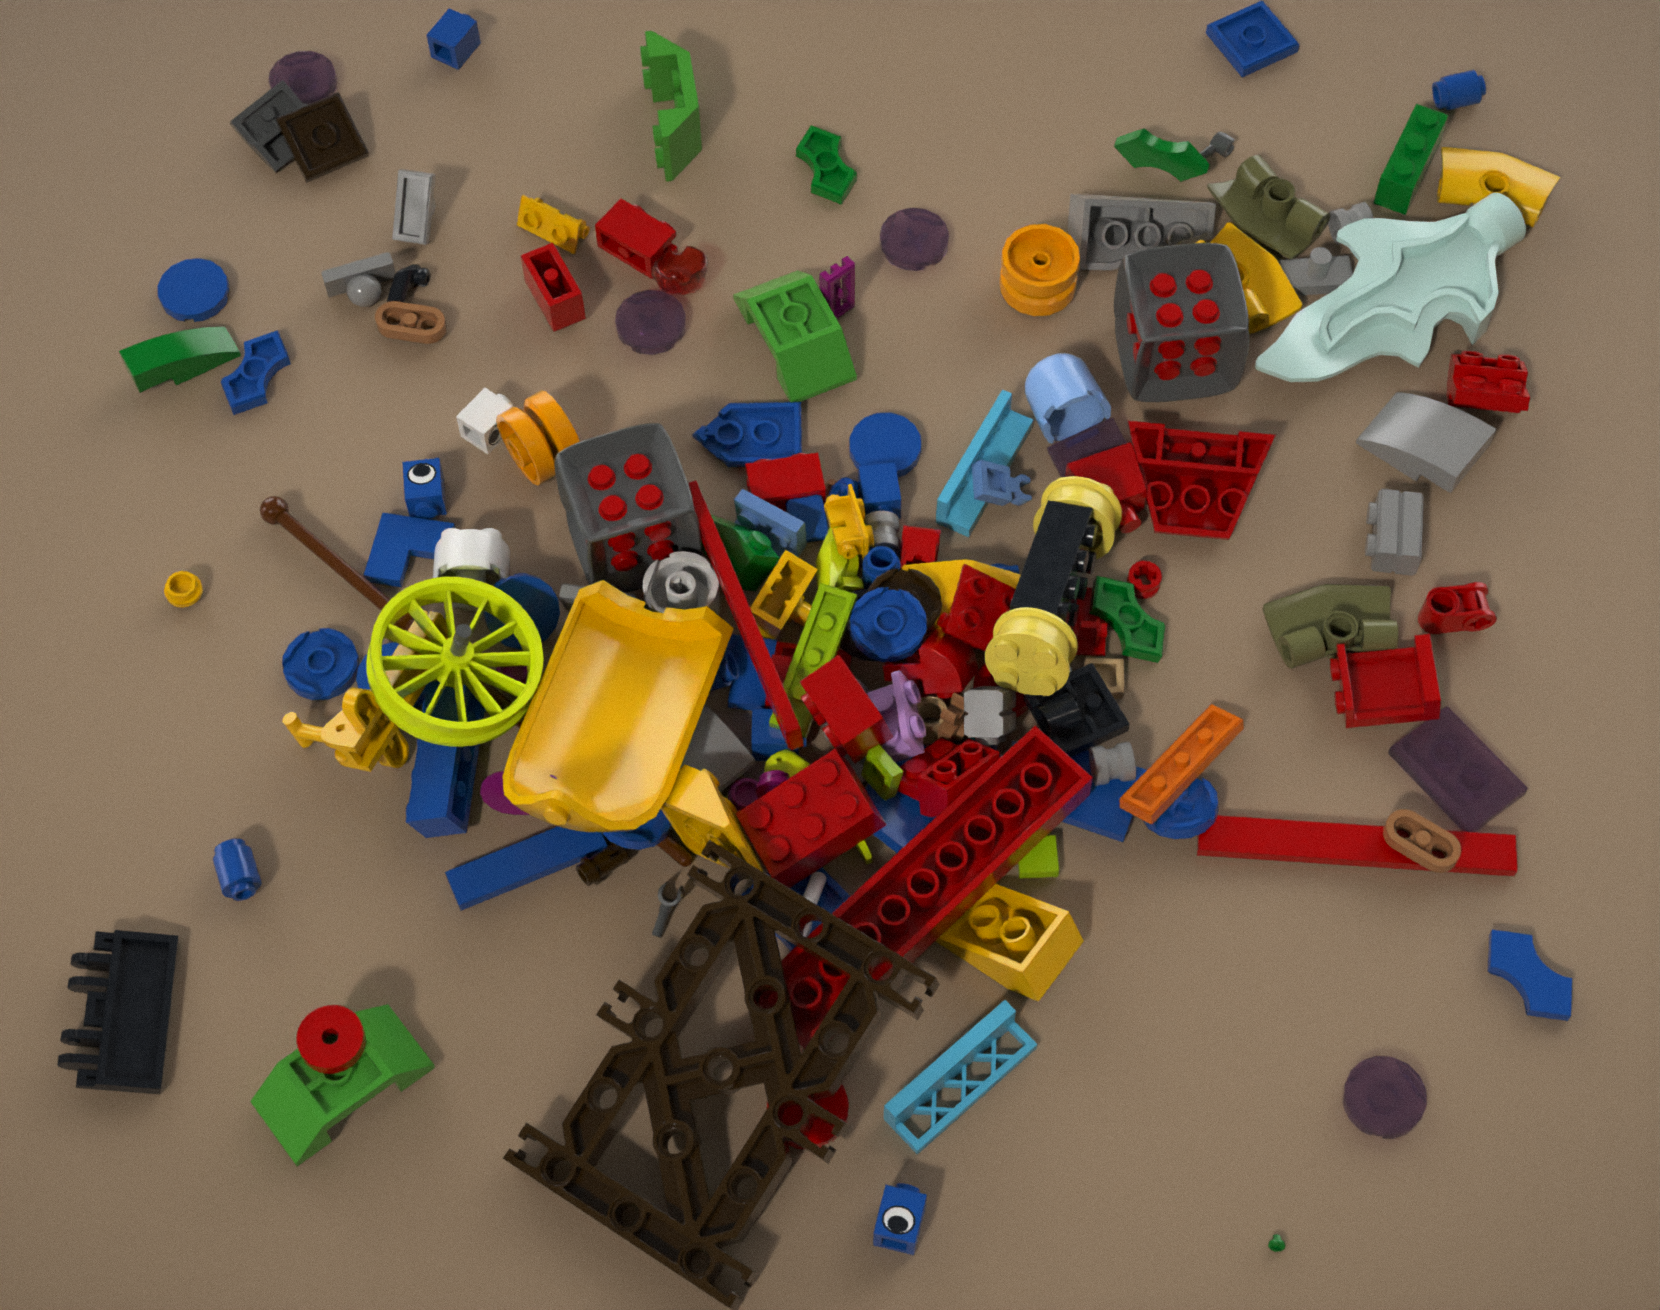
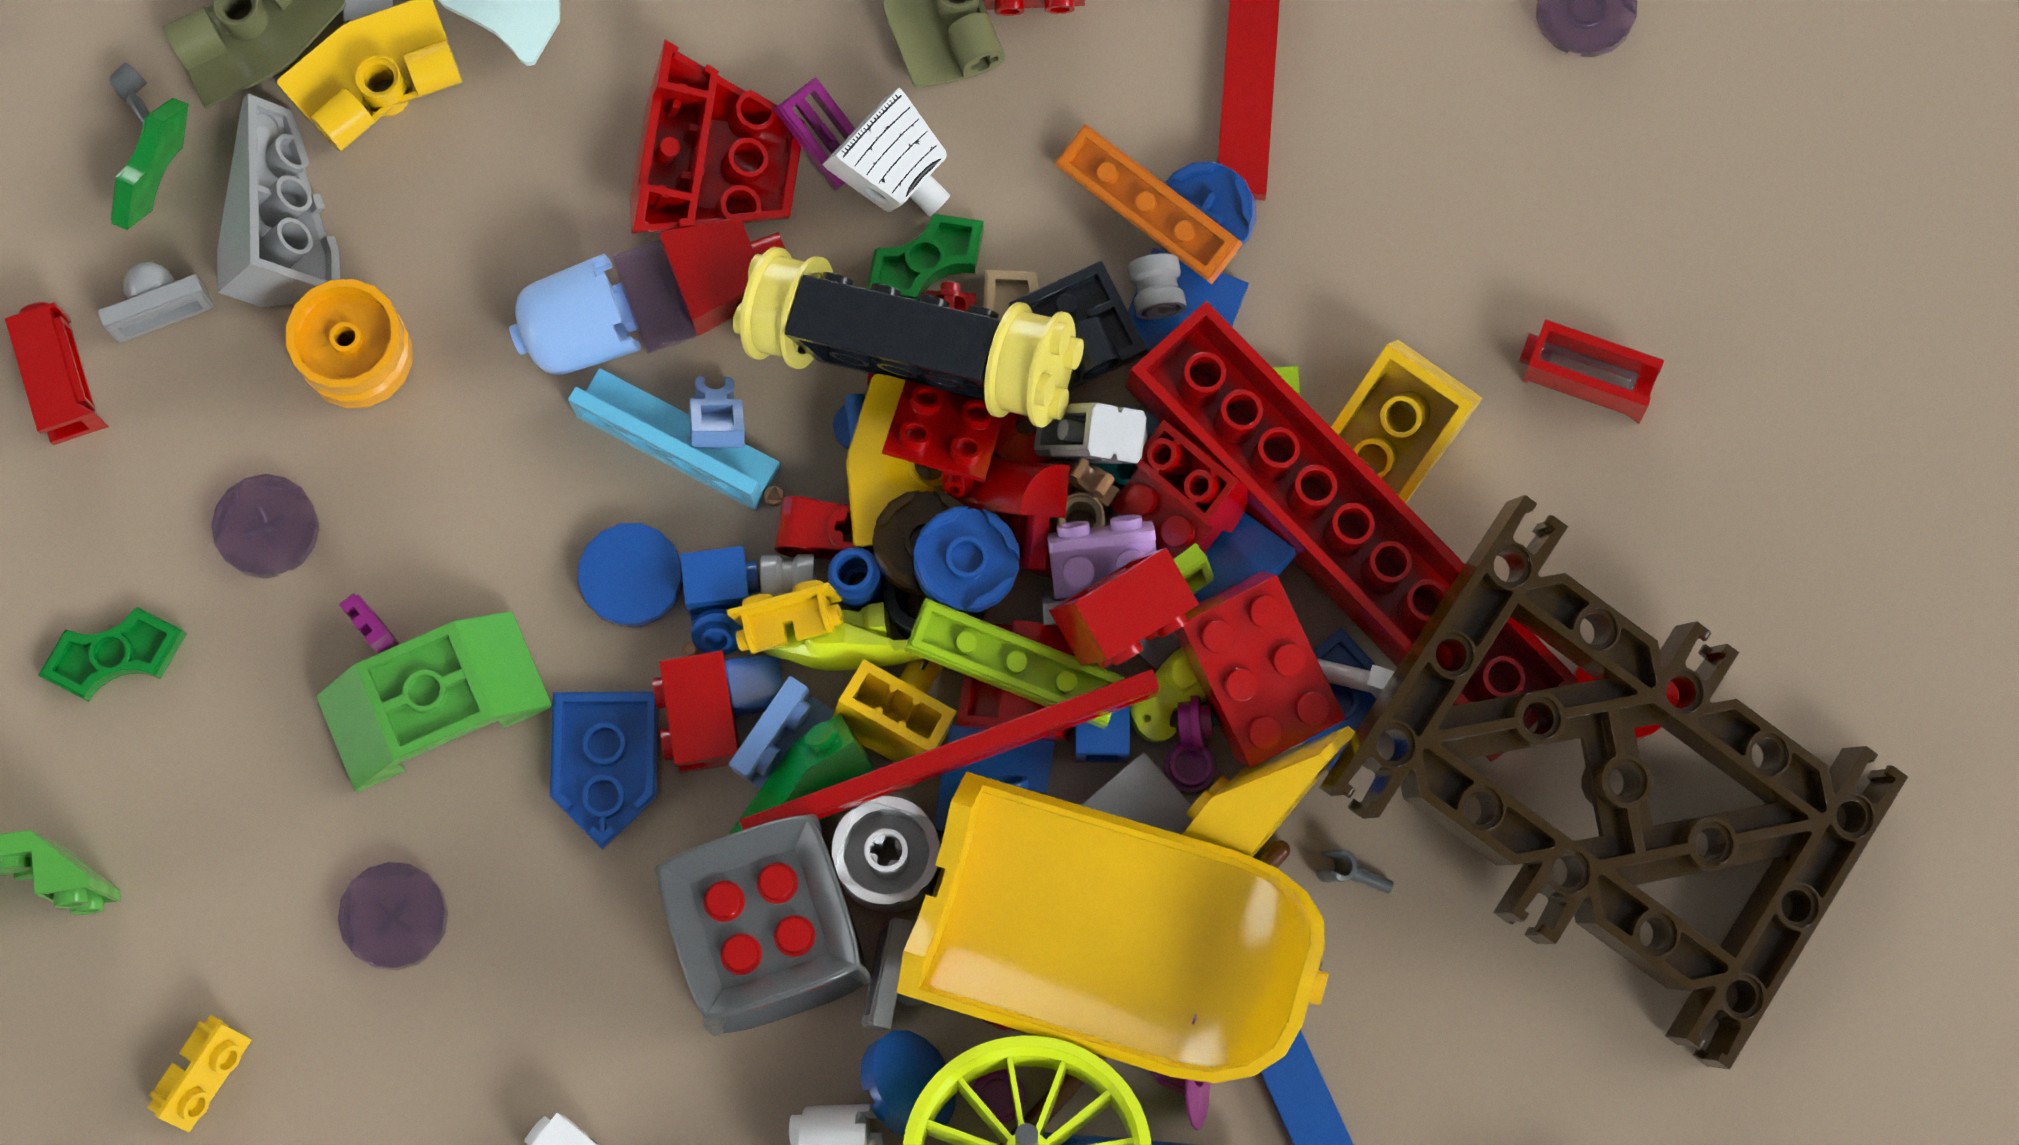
camera: 90 degrees left, 15 degrees up
(536, 435) = (618, 1067): light orange wheel -> none
(553, 287) = (333, 1061): red brick -> none
(634, 236) = (240, 937): red brick -> none
(681, 272) = (310, 867): clear red hair -> none
(900, 1218) = (1771, 574): blue brick -> none
(946, 529) = (773, 495): none -> medium nougat piece
(951, 1064) = (1561, 500): medium azure fence -> none
(1013, 115) = (52, 372): none -> red window
(1065, 166) = (153, 302): none -> light grey tile
(1065, 1085) = (1591, 369): none -> red window
(1152, 574) = (849, 227): red bush -> none
(1181, 322) = (473, 146): dark grey piece -> none
(1202, 589) = (892, 157): none -> white torso
(1230, 560) = (803, 135): none -> magenta tile
(1276, 1244) = (1769, 145): green piece -> none

